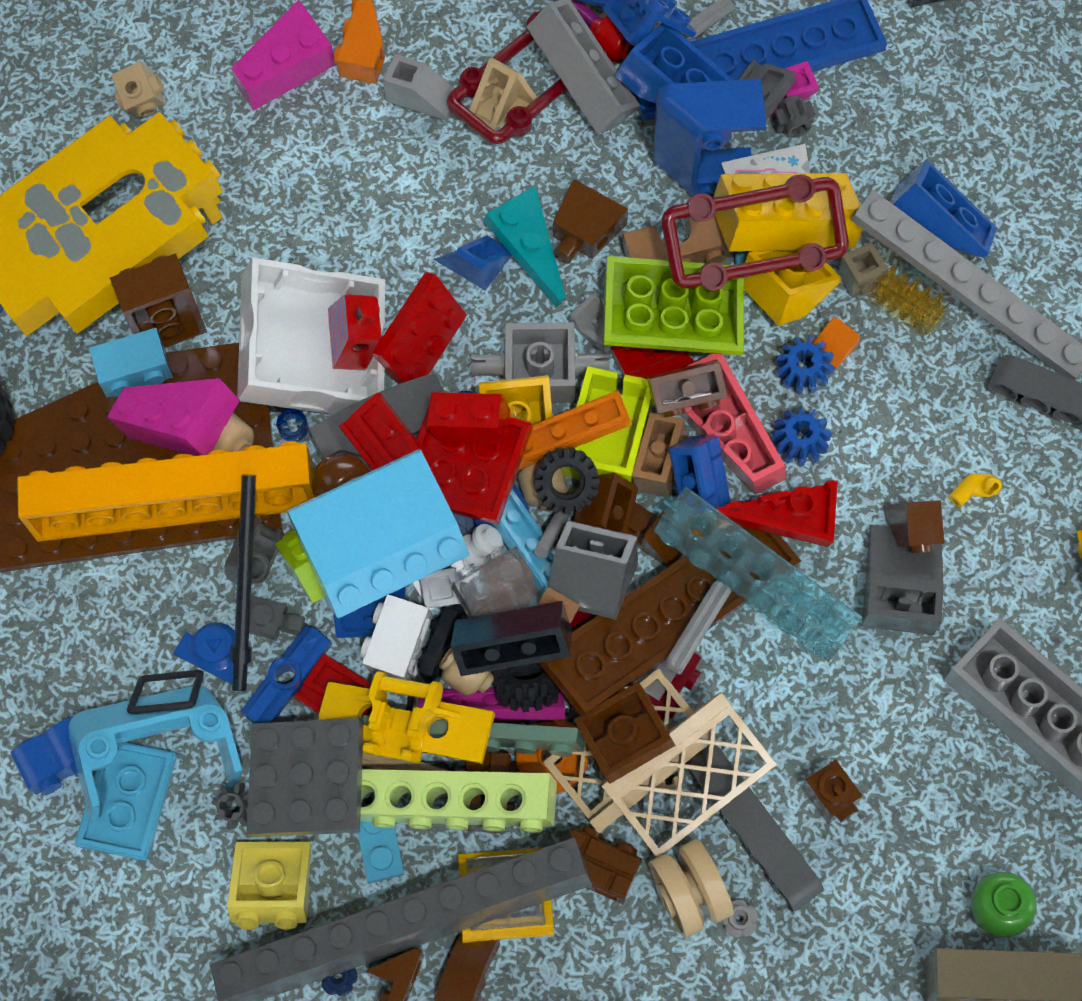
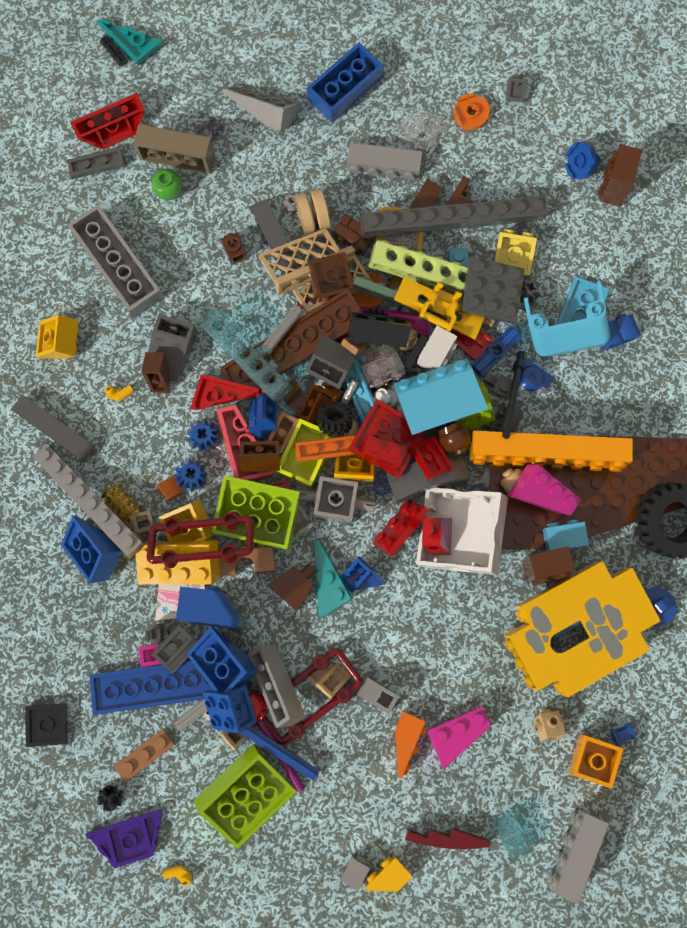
camera: 170 degrees left, 10 degrees up
(21, 103) = (622, 734): none -> blue bush
(62, 54) = (595, 761): none -> light orange brick
(133, 709) = (577, 334): black piece -> none

